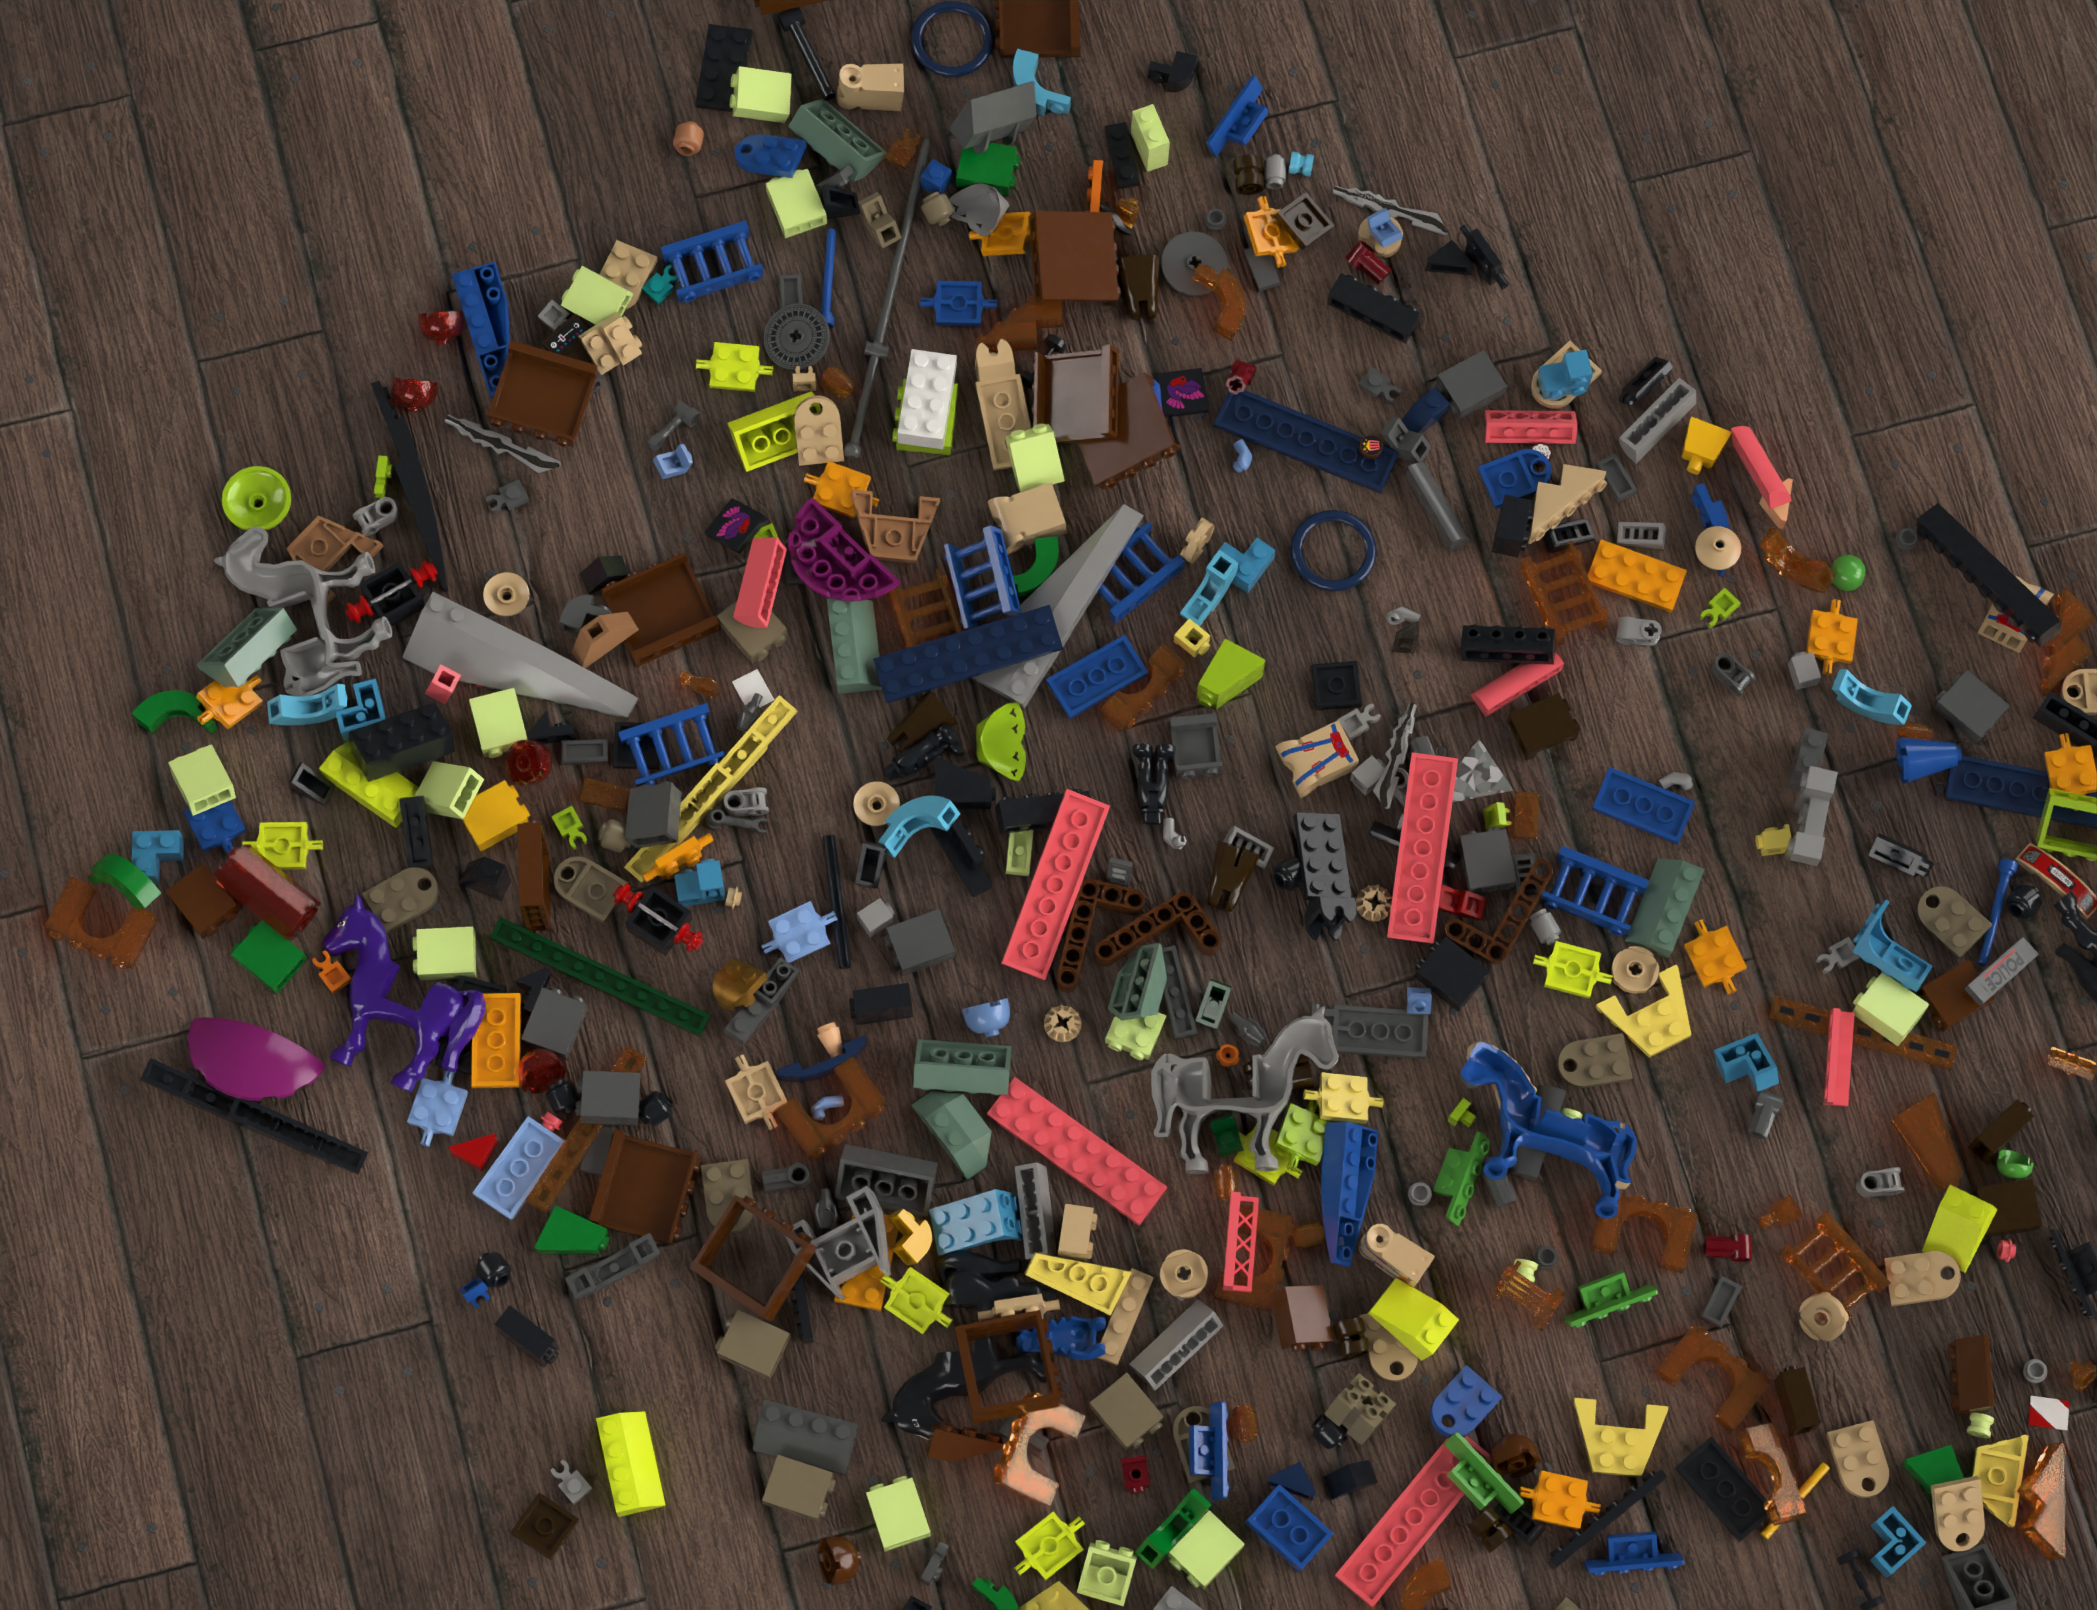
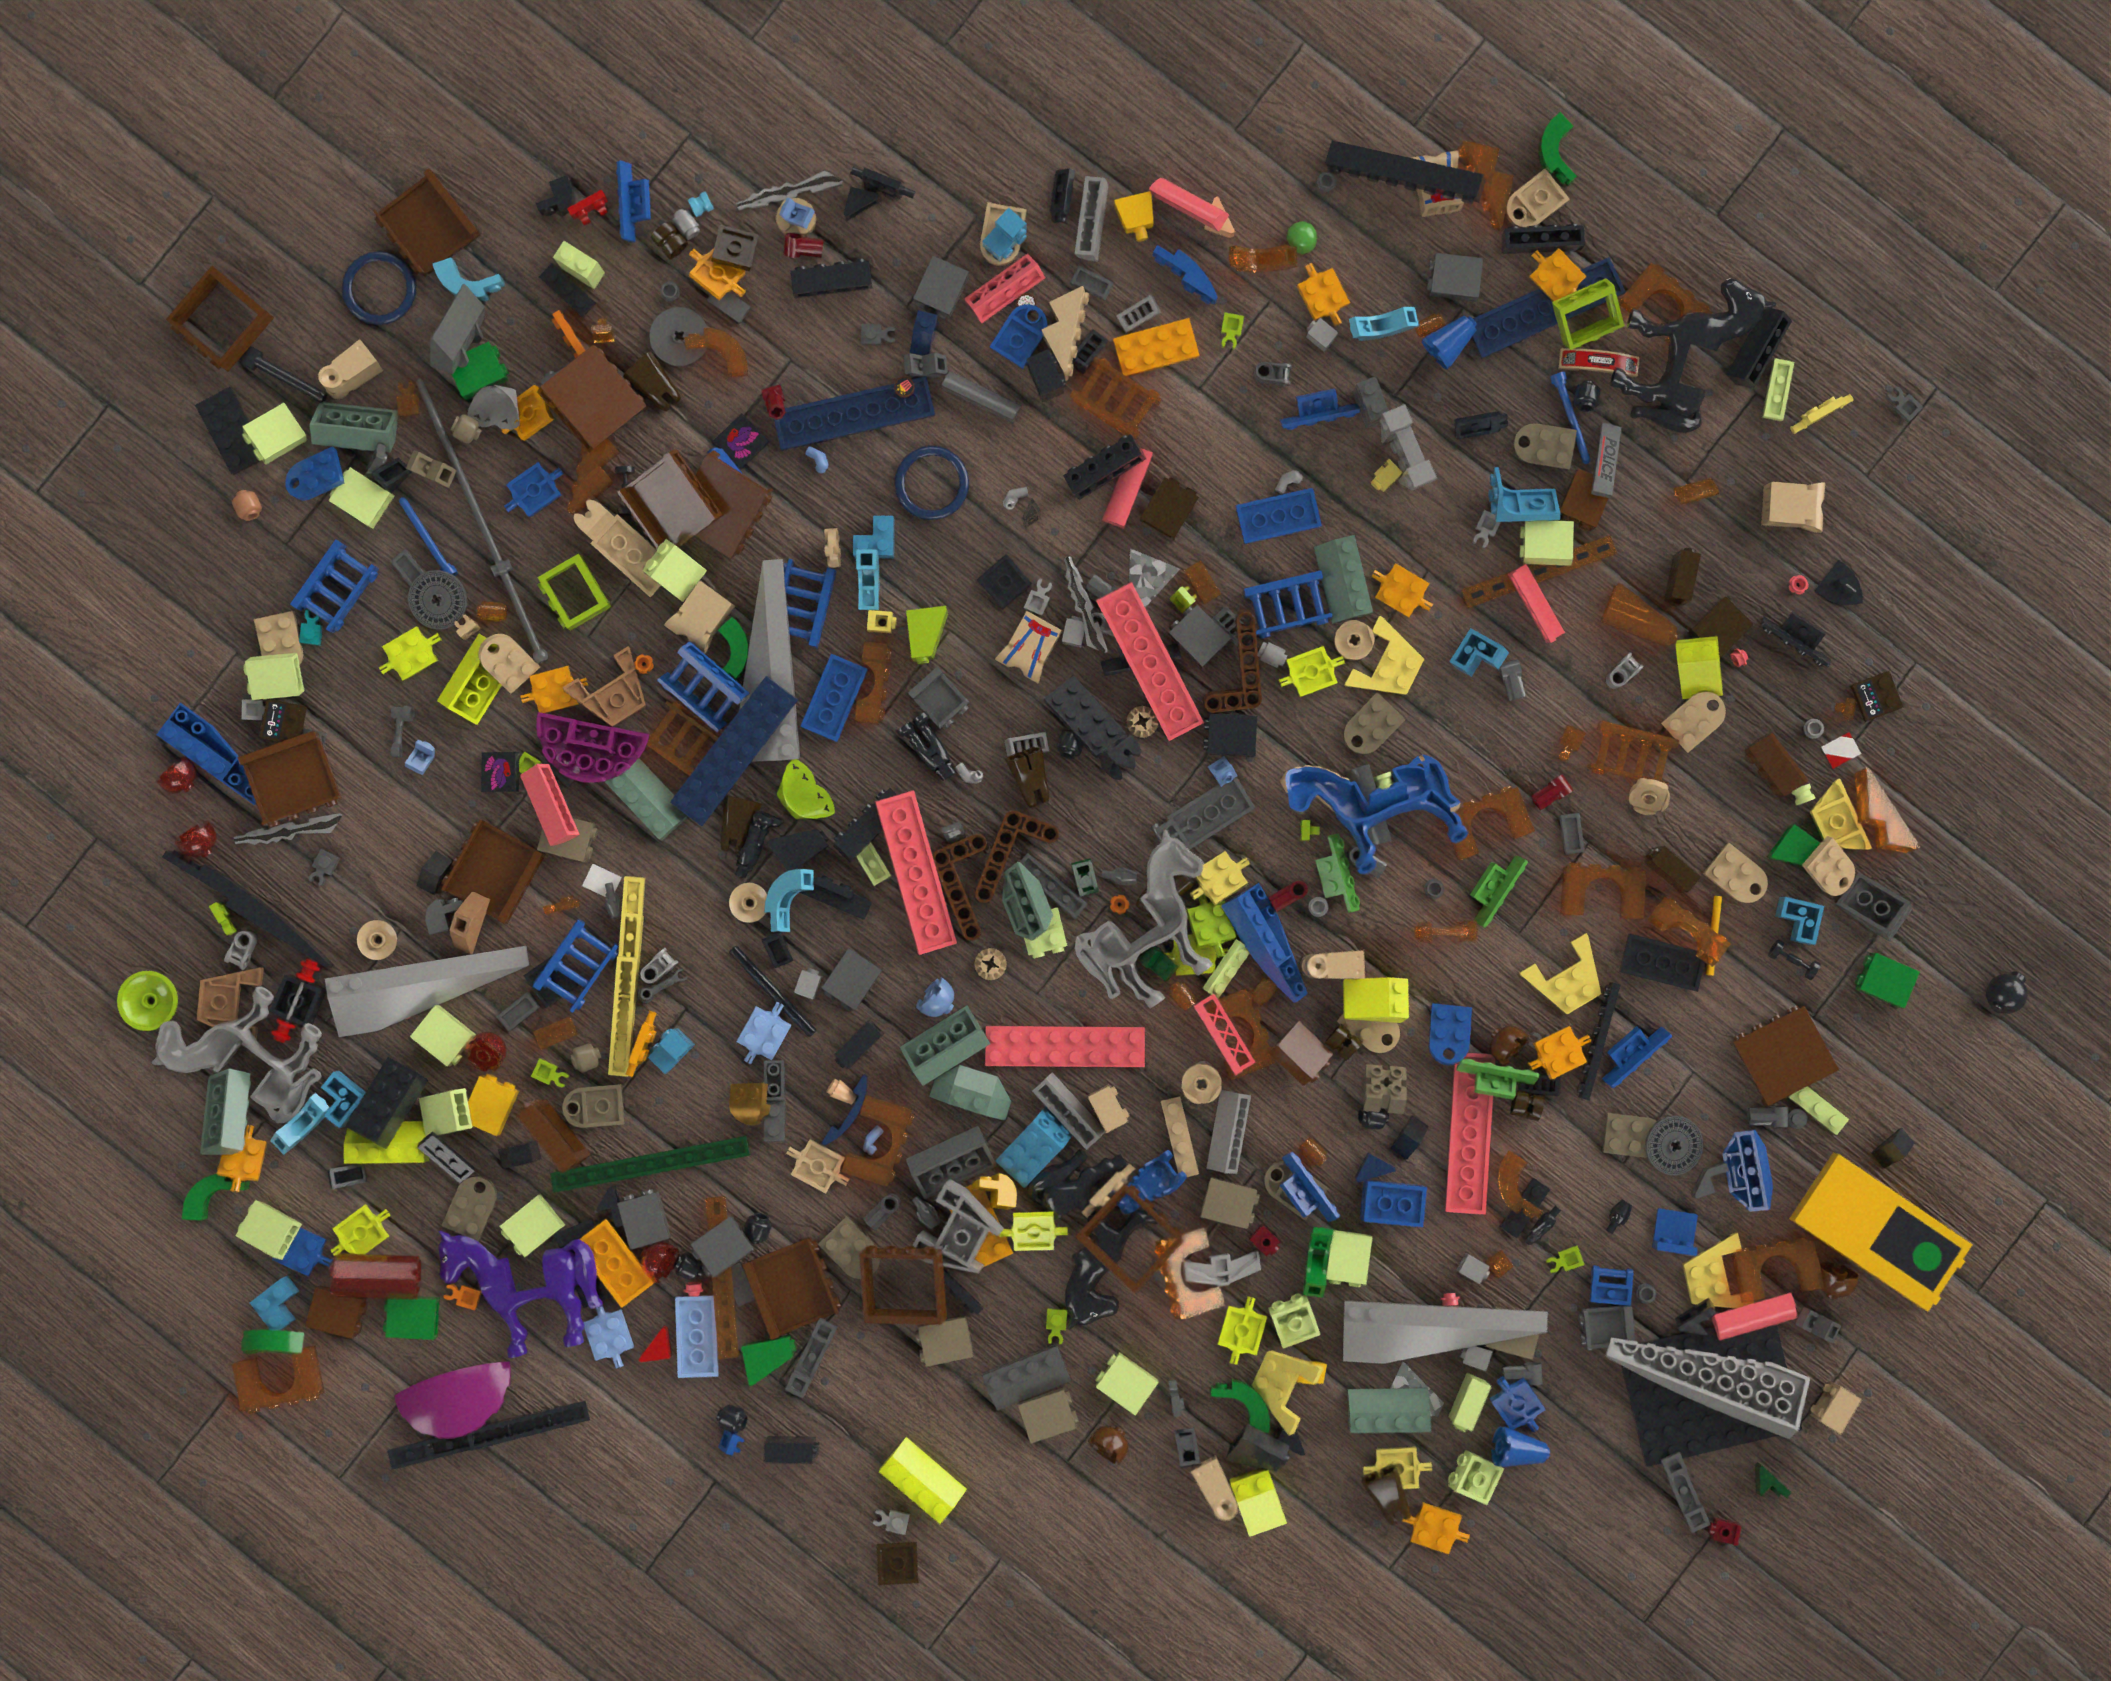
camera: 30 degrees left, 15 degrees up
(442, 684) = (383, 1038): coral brick -> none
(545, 734) = (479, 1020): black slope -> none
(611, 343) = (309, 702): tan plate -> none
(653, 815) = (601, 1025): dark grey brick -> none
(658, 919) = (661, 1097): black brick -> none
(733, 897) = (700, 1041): tan plate -> none
(873, 1406) = (1056, 1321): none -> lime plate
(927, 399) = (566, 582): white brick -> none
(936, 177) = (447, 406): blue brick -> none
(942, 518) = (644, 669): none -> orange plate
(954, 1444) = (1130, 1309): reddish brown slope -> none
(1071, 1469) = (1221, 1269): none -> light grey plate
(1084, 1281) = (1136, 1136): light yellow wing -> none
(1105, 207) = (587, 343): black bar -> none
(1201, 93) = (594, 201): none -> red plate
(1288, 1187) = (1226, 969): none -> yellowish green plate
(1396, 1161) = (1286, 896): none -> dark red piece
(1461, 903) = (1202, 678): red slope -> none
(1527, 1268) = (1426, 910): yellowish green wheel -> none
(1635, 631) = (1183, 391): light grey piece -> none
(1716, 557) = (1197, 296): tan dish -> none
(1754, 733) = (1318, 407): none -> blue bracket
(2013, 1164) = (1706, 593): bright green hair -> none

